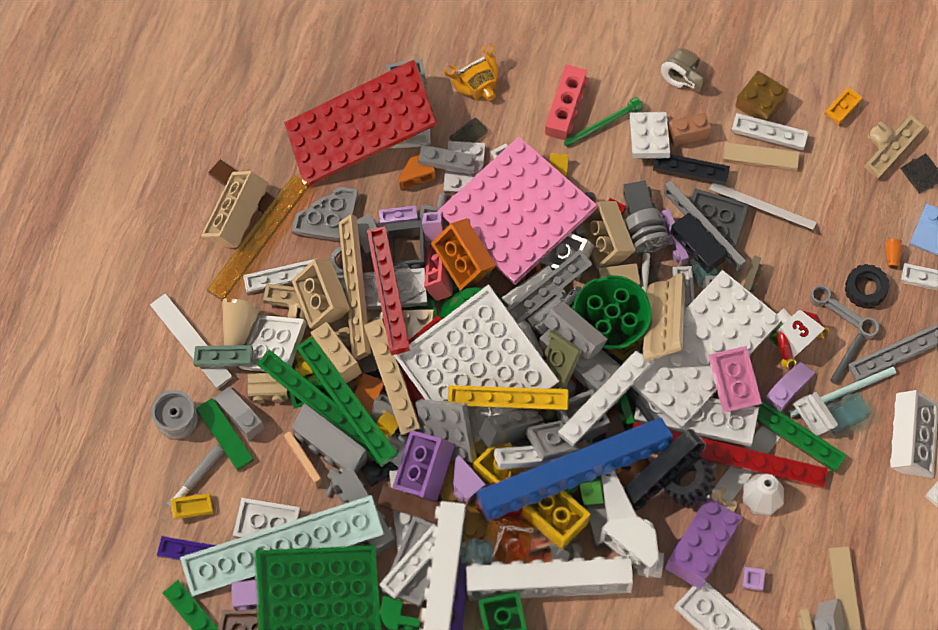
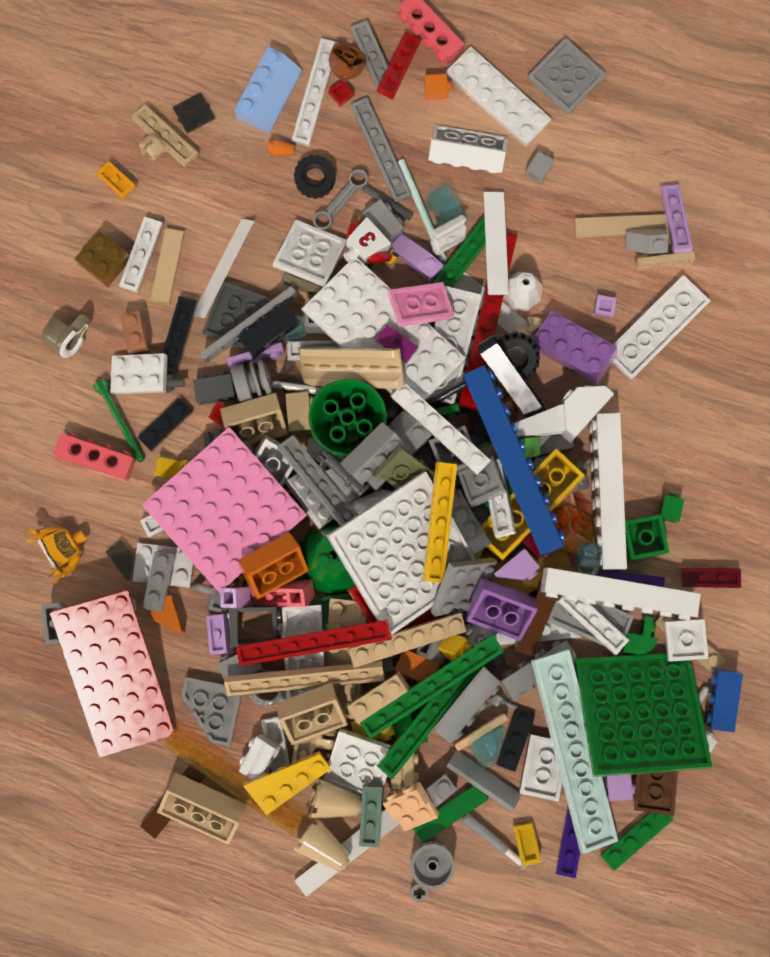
camera: 90 degrees left, 15 degrees up
(144, 403) = (423, 896): none -> light grey bush
(195, 312) = (323, 847): none -> tan cone
(231, 391) = (410, 806): none -> light nougat plate
(255, 275) = (279, 786): none -> yellow wing
(255, 464) = (484, 780): none -> light grey tile
(280, 256) = (259, 757): none -> white brick
(286, 462) = (488, 747): none -> clear light blue slope
(294, 495) = (515, 740): none -> black plate
(601, 162) = (165, 425): none -> black plate
(642, 164) = (171, 383): none -> dark grey plate
(691, 356) = (392, 339): none -> magenta plate
(784, 281) = (310, 253): none -> white plate
(812, 462) = (496, 243): none -> white sticker
(824, 353) = (381, 216): none -> light grey brick
(901, 508) = (539, 167): none -> light grey brick

